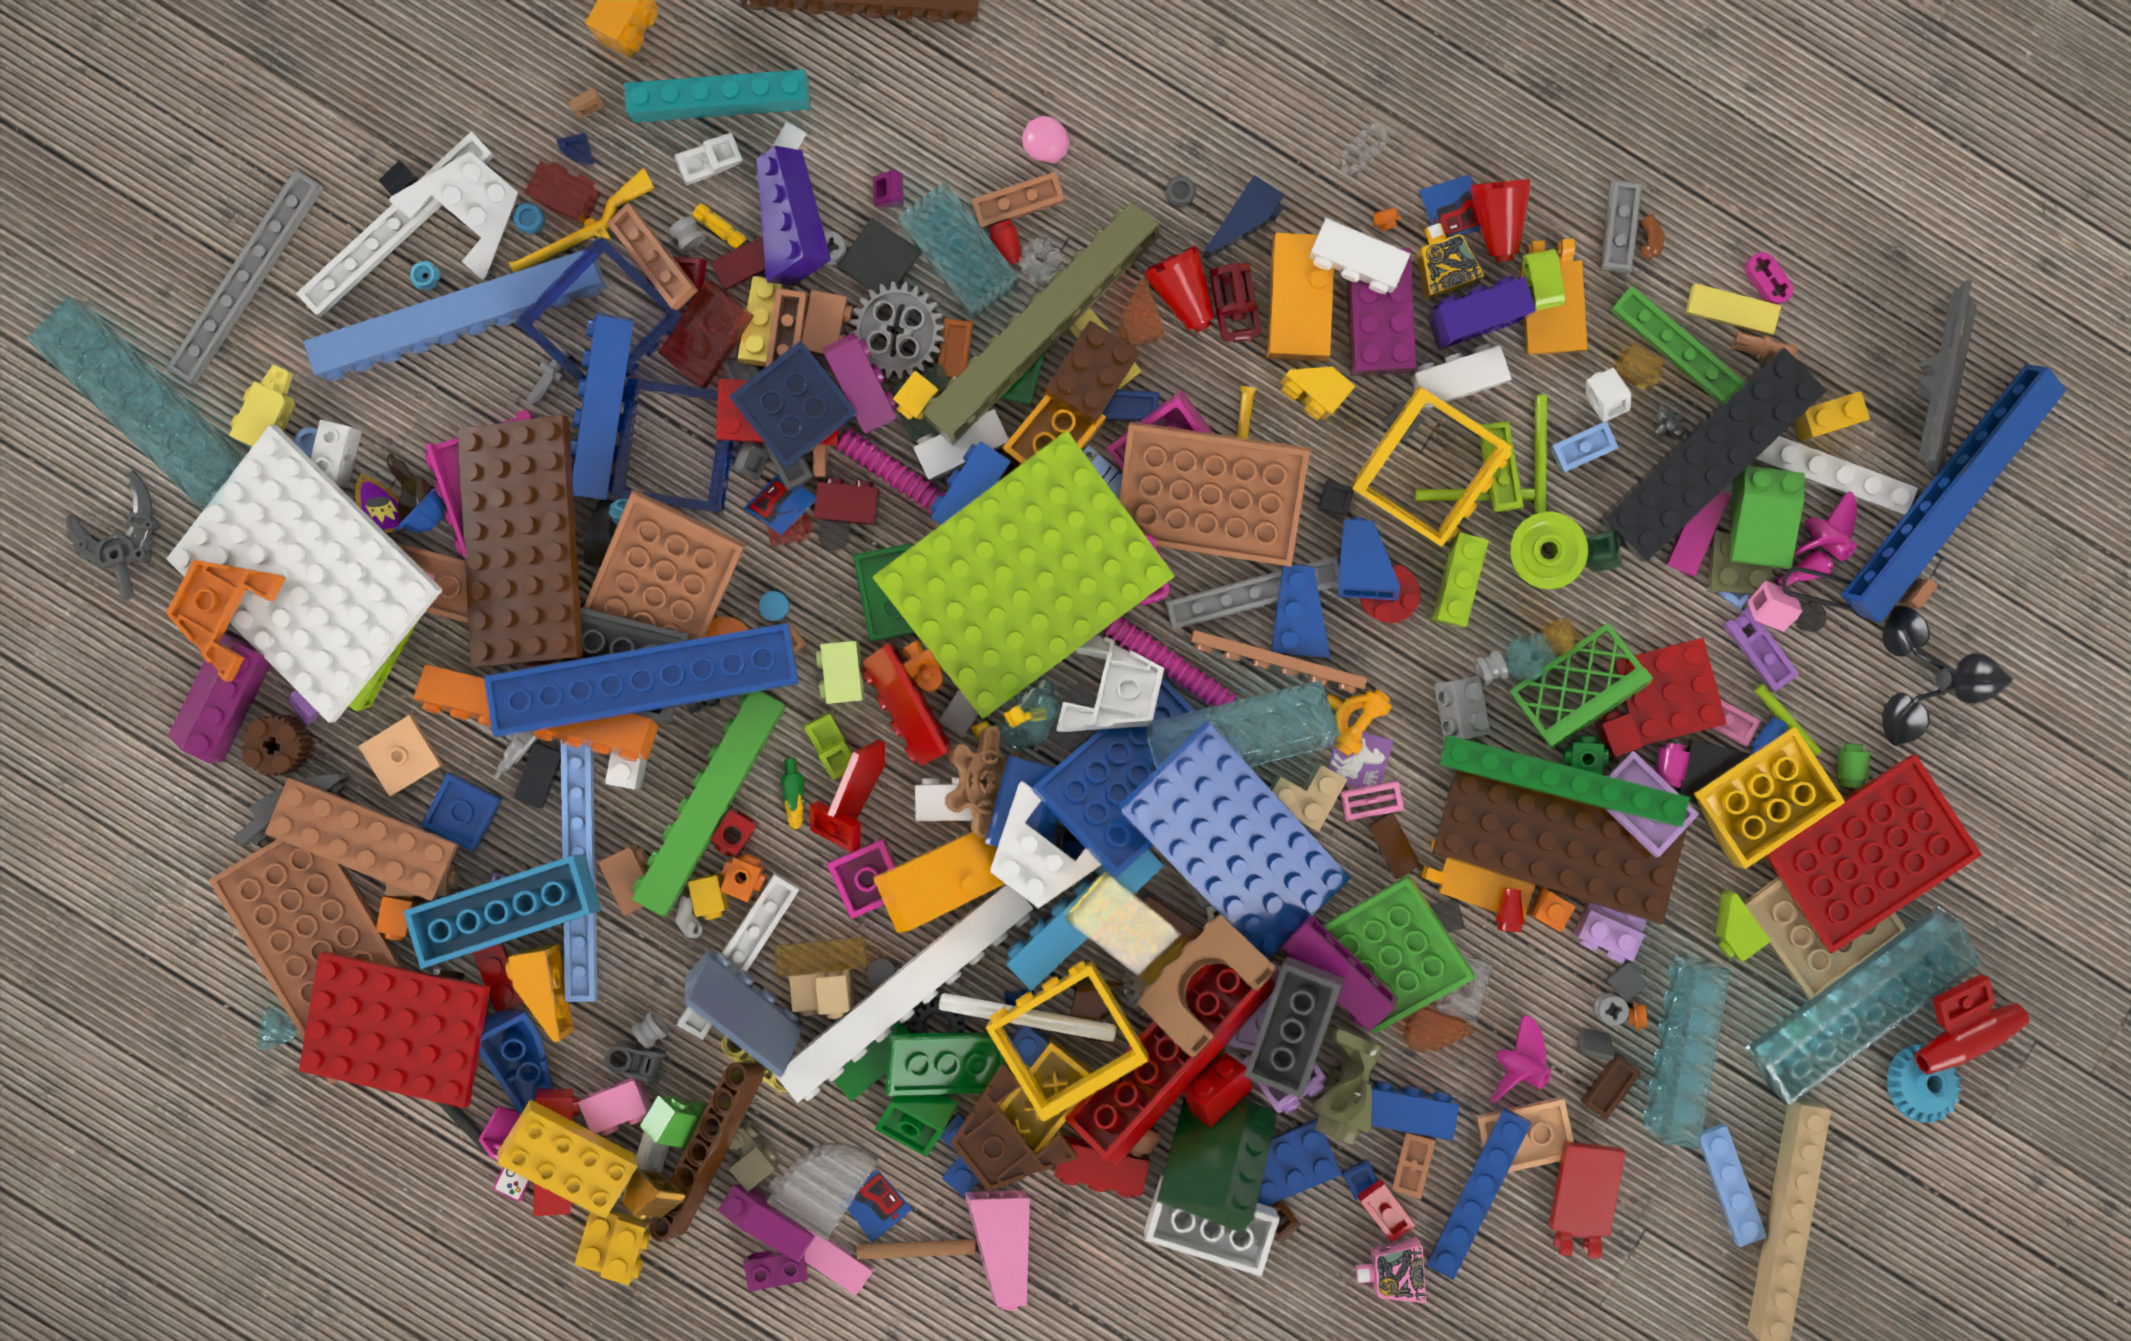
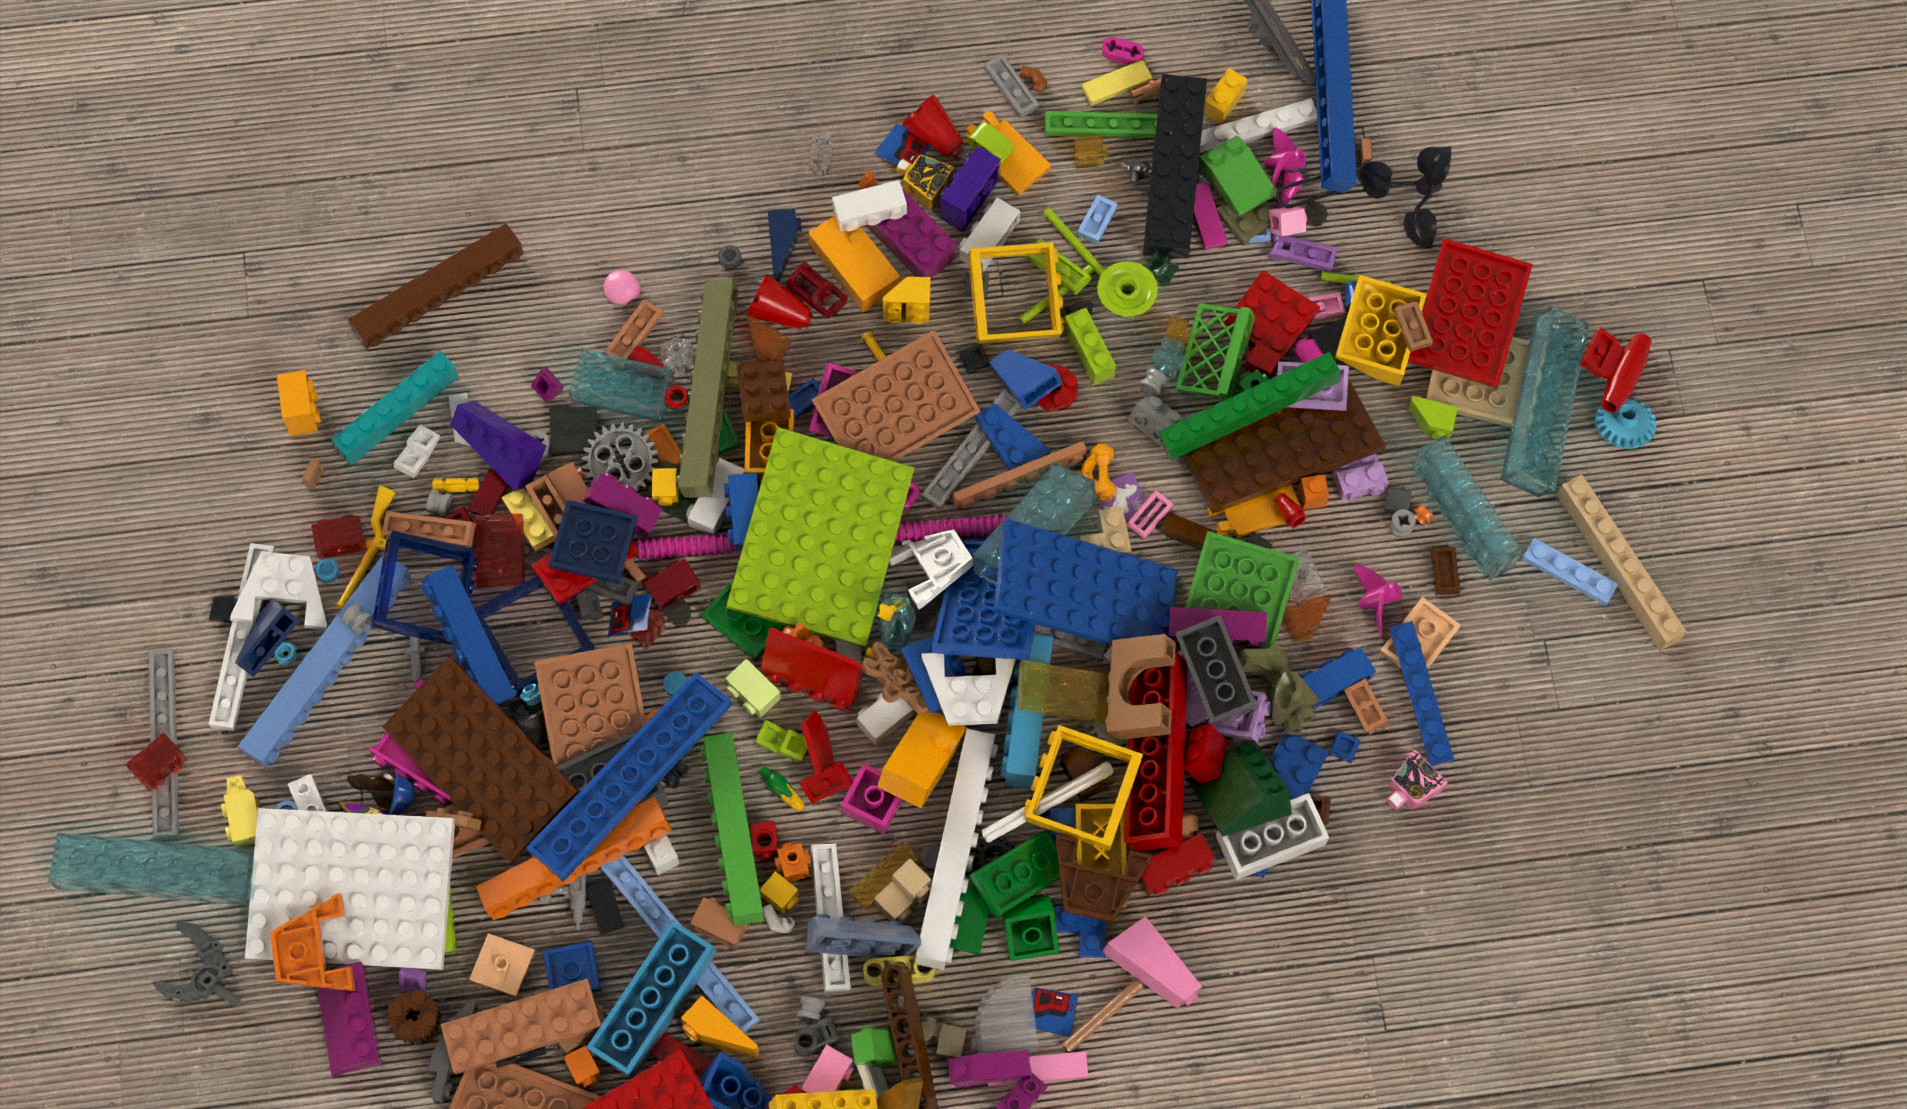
camera: 40 degrees left, 20 degrees down
(215, 296) = (156, 762): none -> clear red brick
(415, 244) = (265, 636): none -> dark blue slope
(454, 594) = (462, 820): none -> medium nougat plate
(506, 300) = (357, 618): none -> light grey wheel
(577, 149) = (326, 507): clear blue tile -> none
(993, 316) = (676, 392): none -> red cone
(1386, 1210) = (1375, 749): plate -> none
(1484, 528) = (1078, 306): none -> black slope
(1585, 1196) = (1487, 643): tile -> none
(1595, 1044) = (1412, 552): dark grey slope -> none
(1608, 394) = (1085, 179): white brick -> none
(1800, 829) = (1413, 326): none -> medium nougat plate
(1853, 765) = (1415, 275): bright green brick -> none

